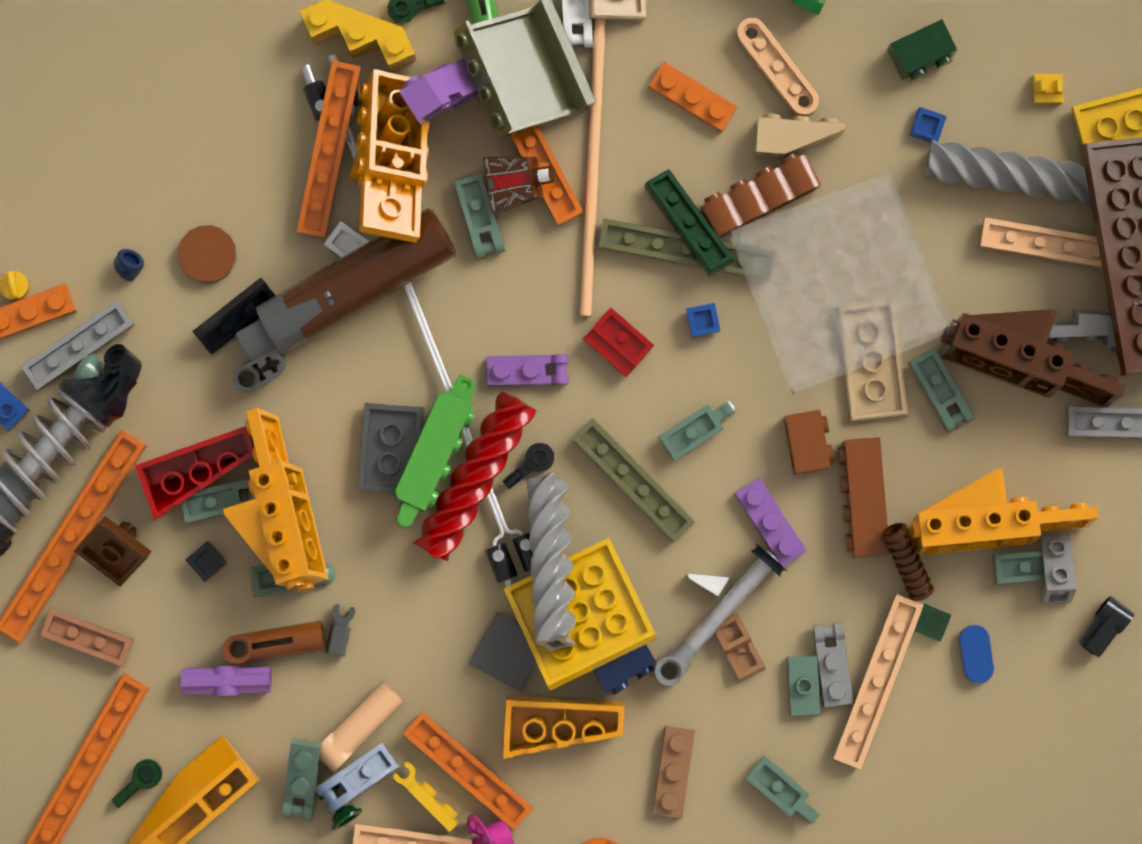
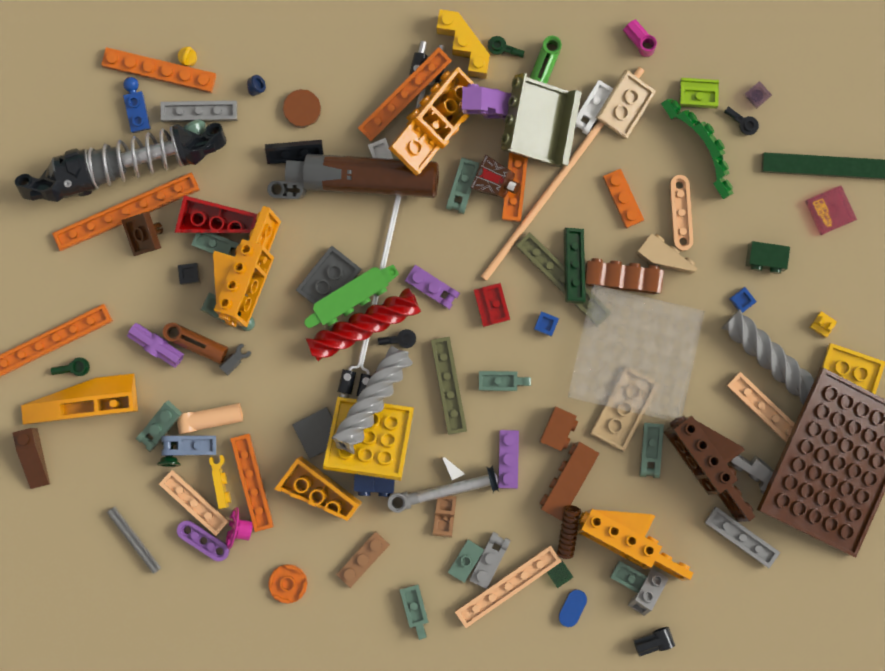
camera: 40 degrees right, 0 degrees up
(87, 637) = (97, 271): nougat plate -> none

